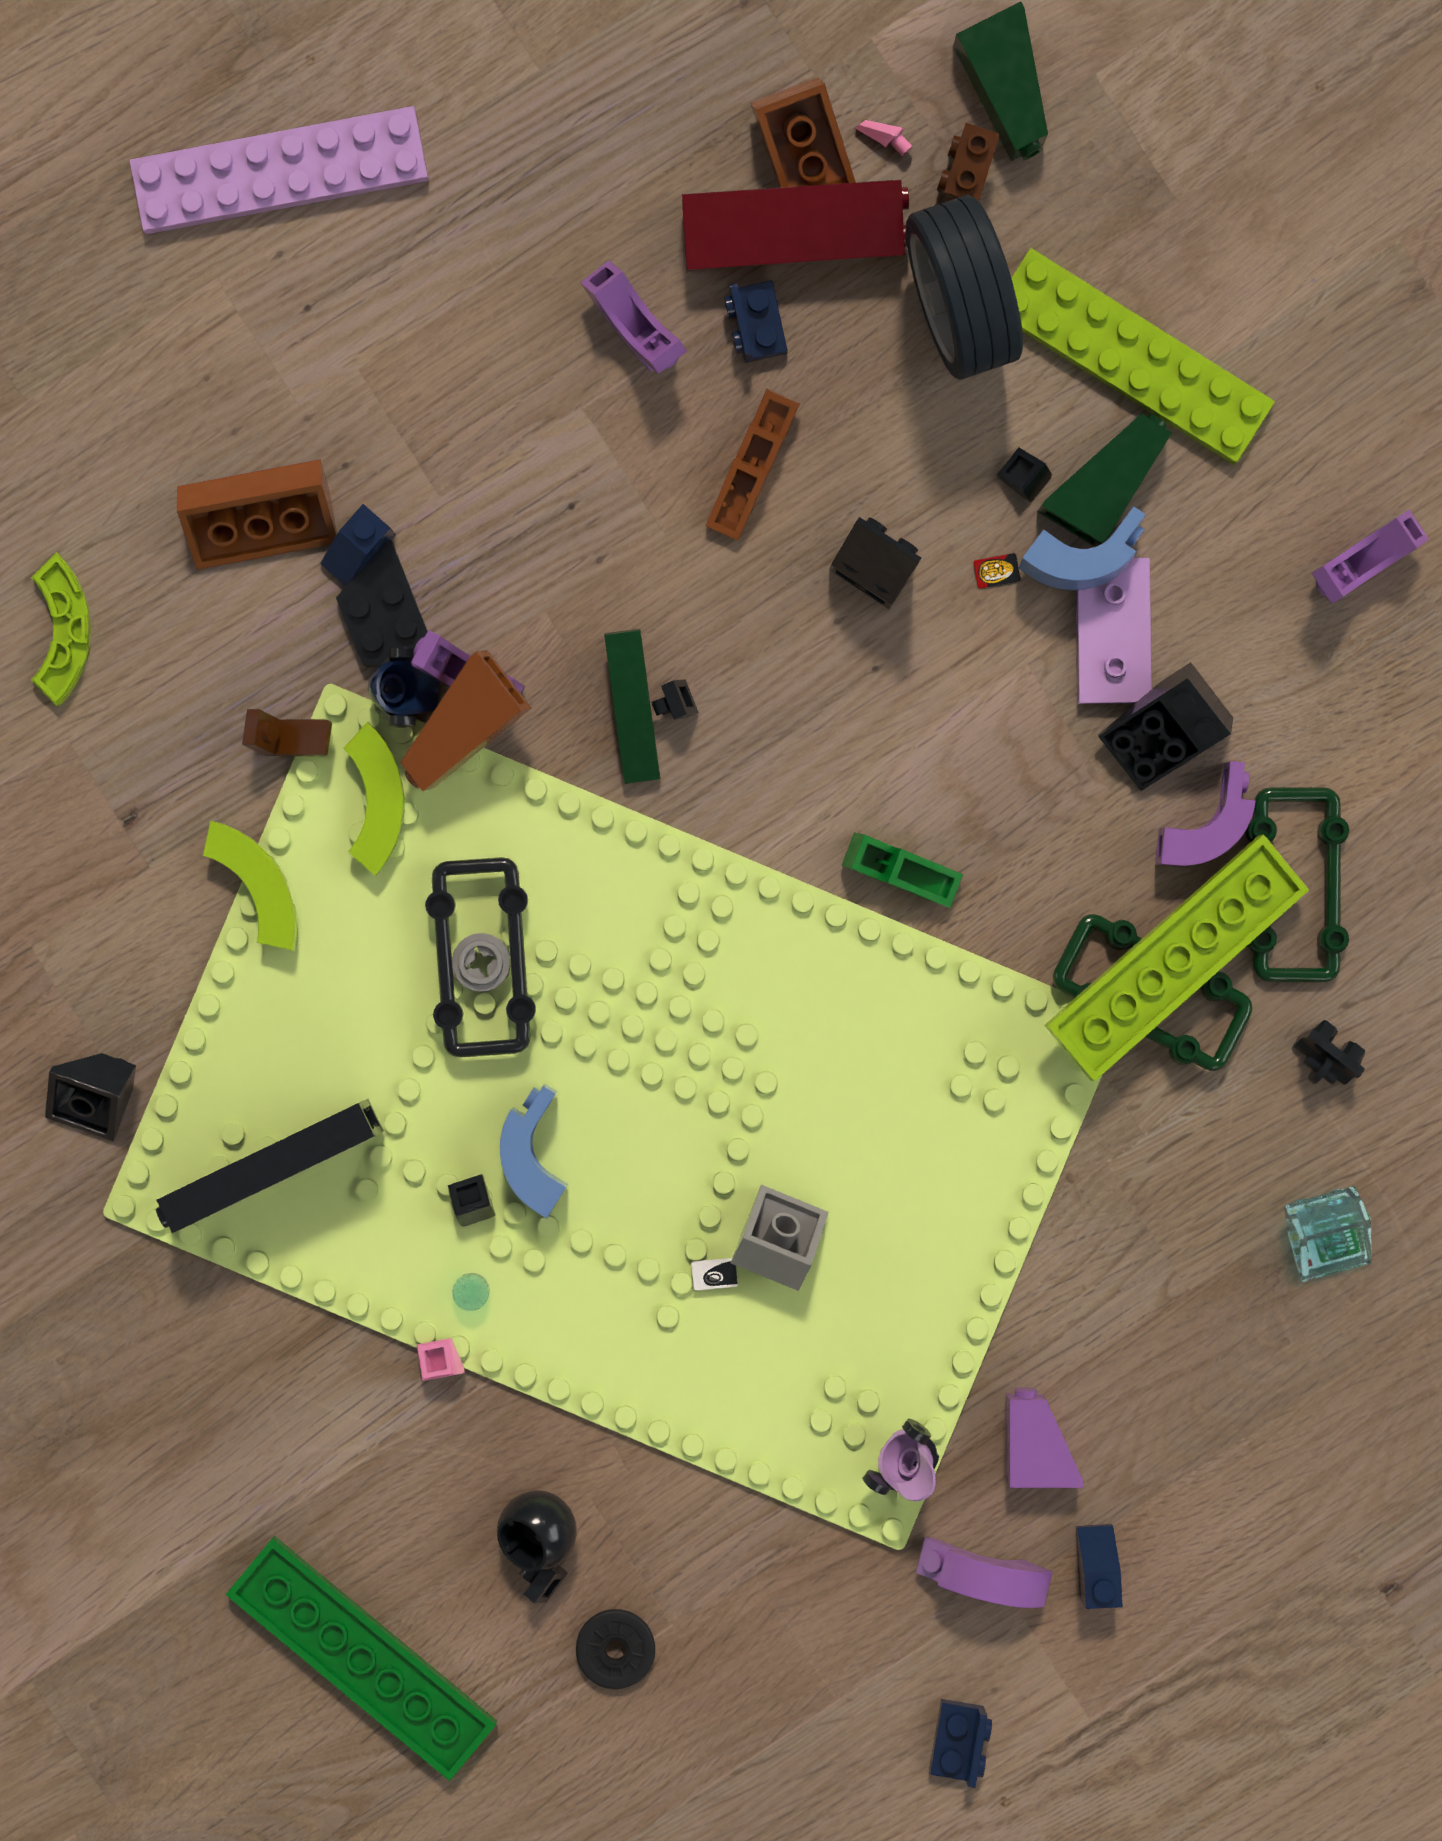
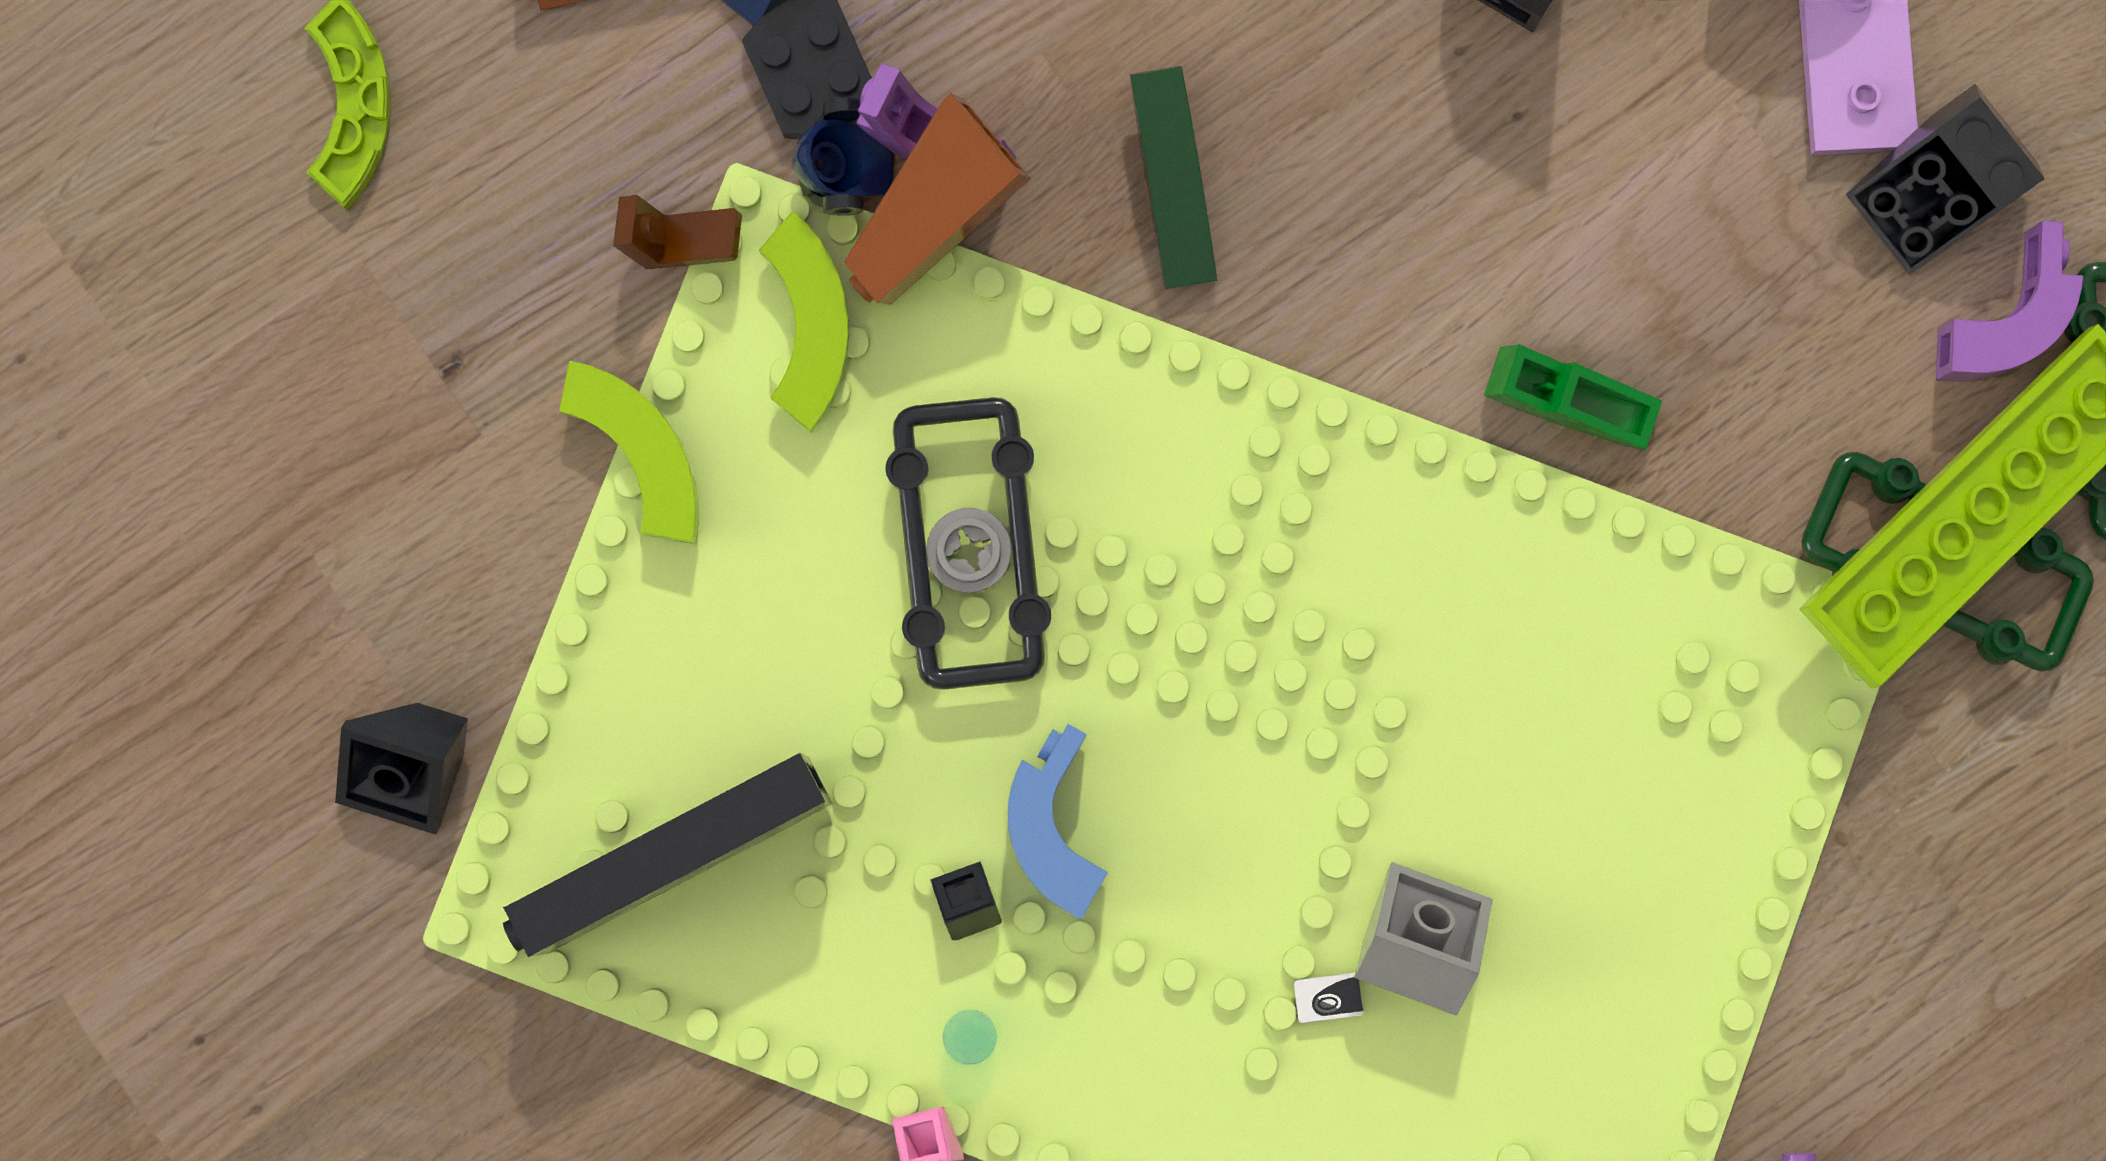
camera: 10 degrees left, 5 degrees down
(677, 700) = (1236, 168): black tile -> none

